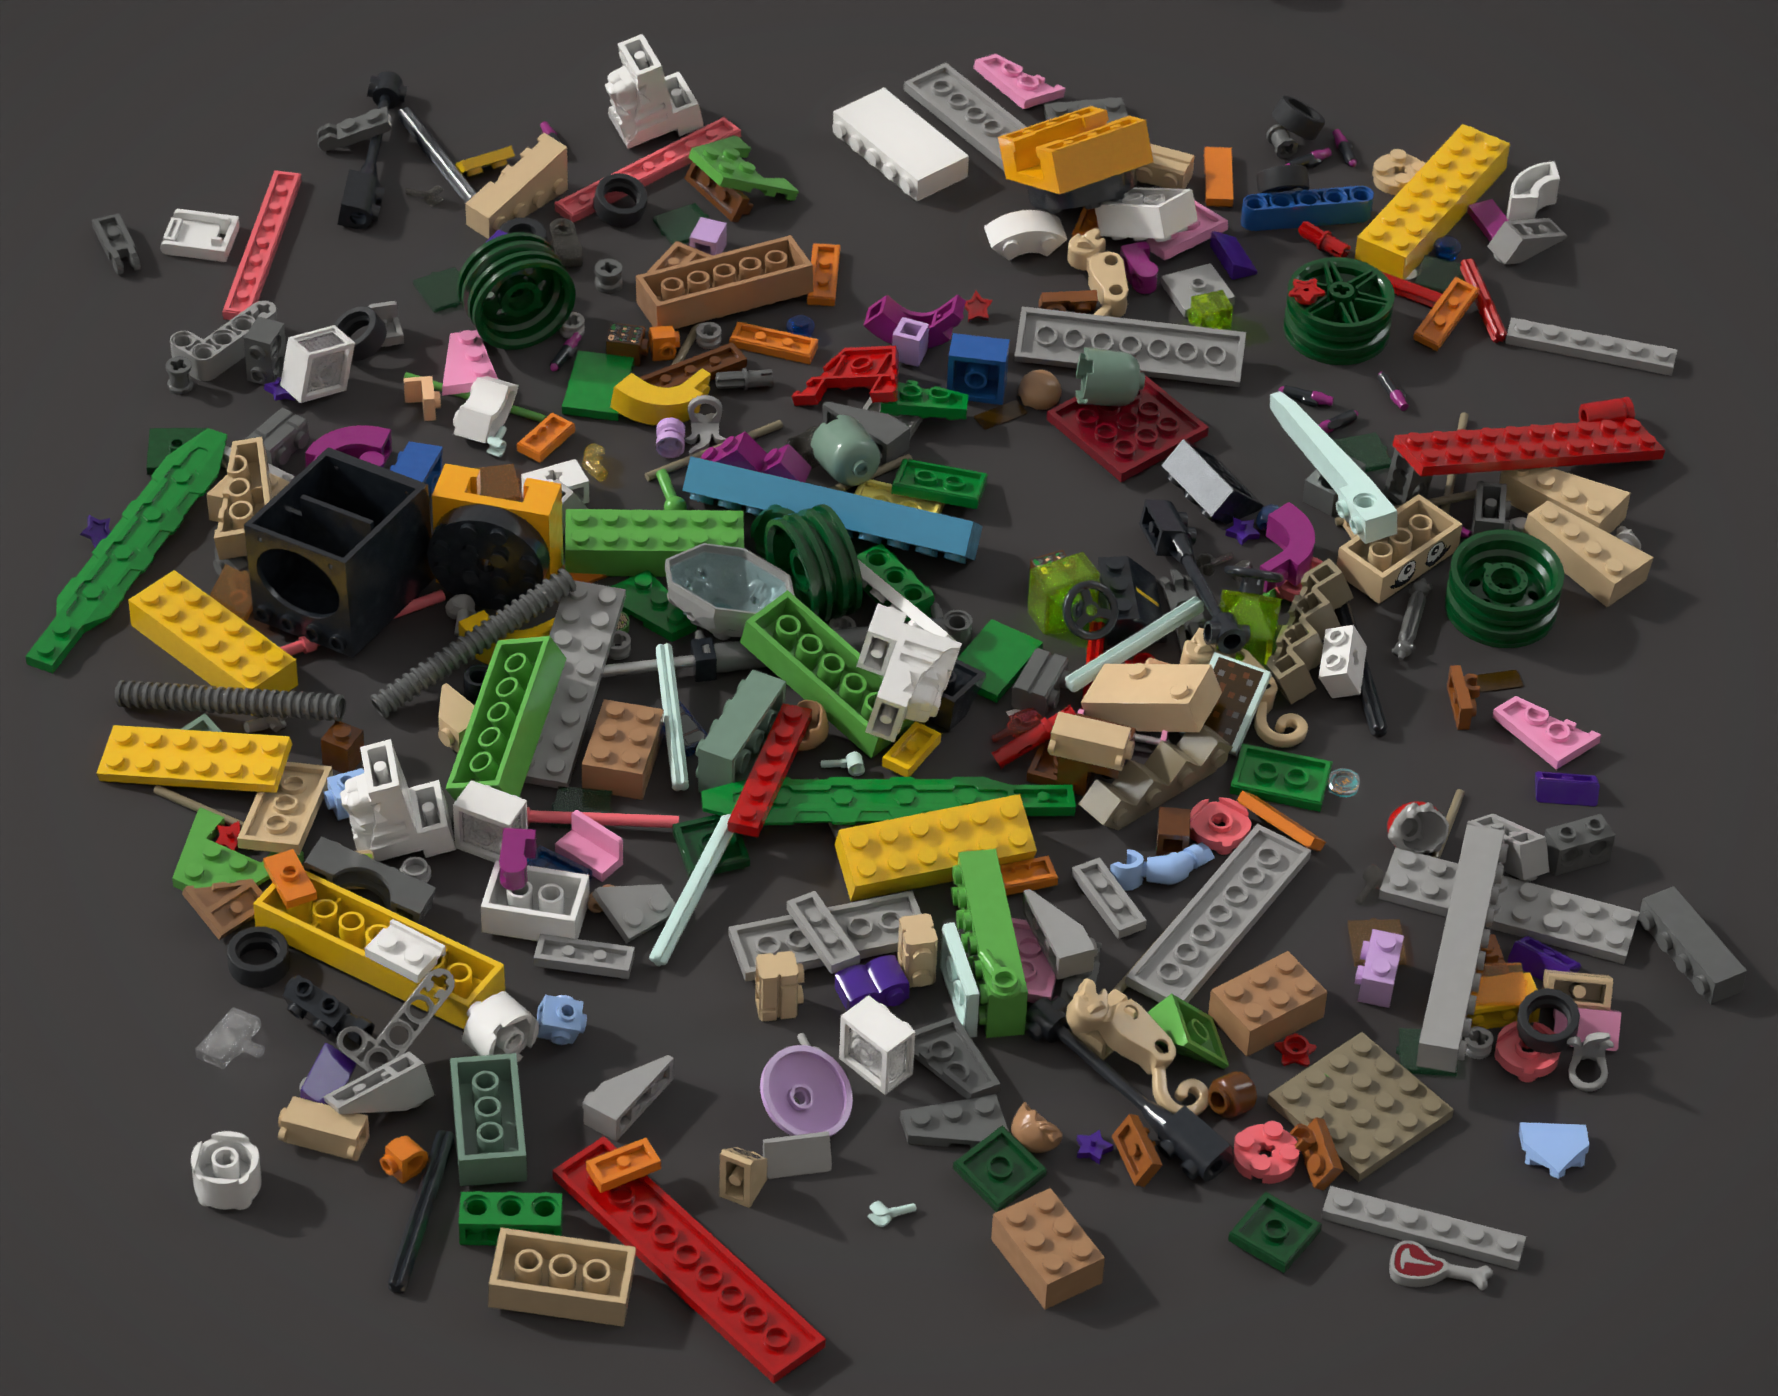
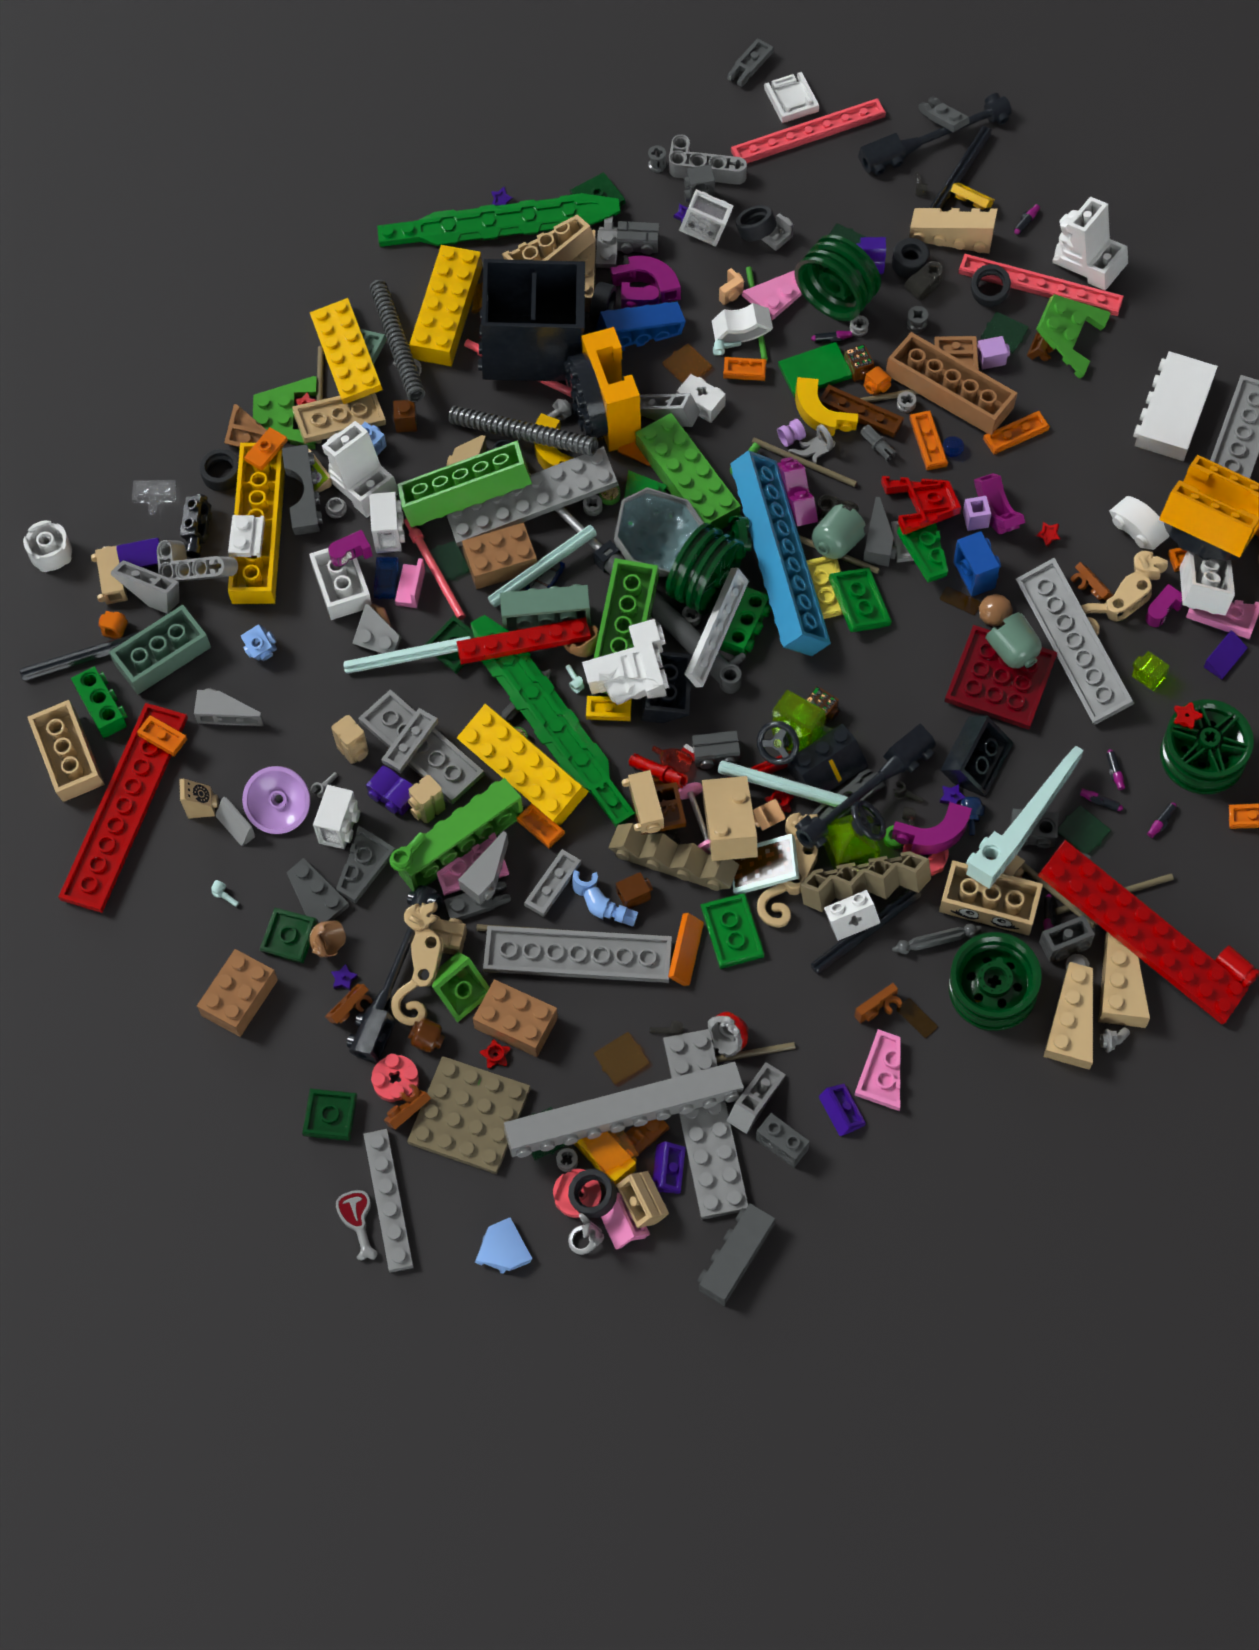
camera: 65 degrees right, 20 degrees up
(499, 1026) = (227, 617): white brick -> none
(584, 956) = (322, 628): light grey plate -> none
(591, 460) = (742, 403): clear yellow arm -> none
(959, 979) = (422, 824): light aqua tile -> none
(1001, 655) = (723, 712): green tile -> none
(1193, 282) = (1175, 650): light grey plate -> none
(1219, 838) = (660, 901): coral plate -> none
(1343, 782) = (752, 970): clear tile -> none
(1380, 968) = (587, 1069): lavender brick -> none

